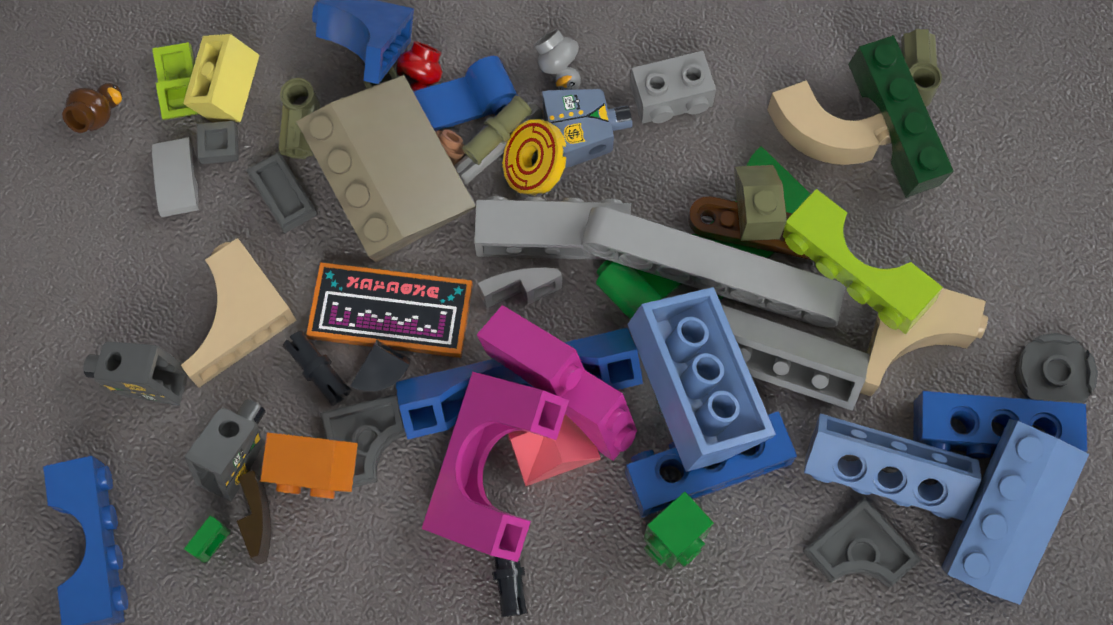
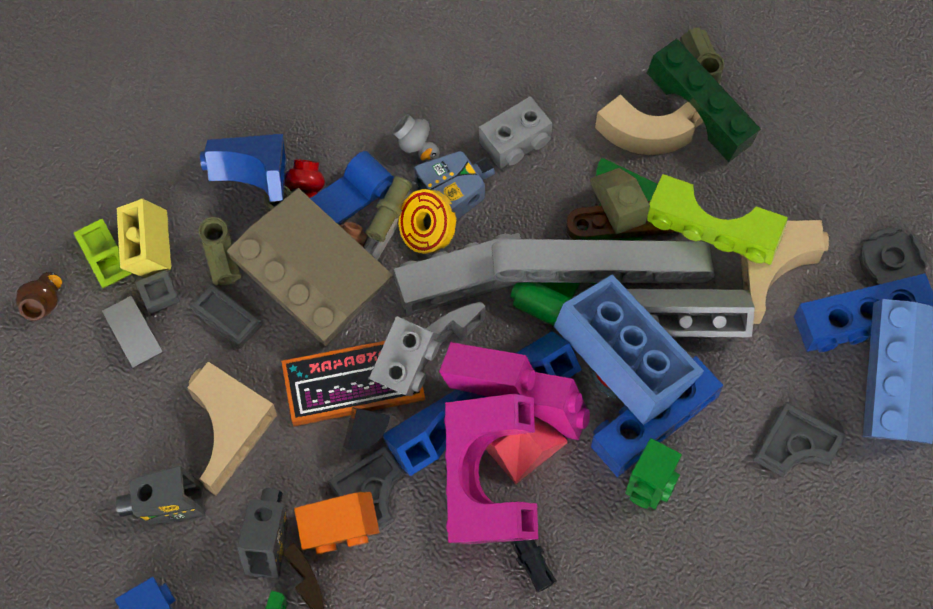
camera: 20 degrees left, 5 degrees down
(317, 368) = (311, 446): black pin -> none
(449, 304) = (405, 357): none -> light grey brick
(835, 438) = (815, 359): medium blue brick -> none

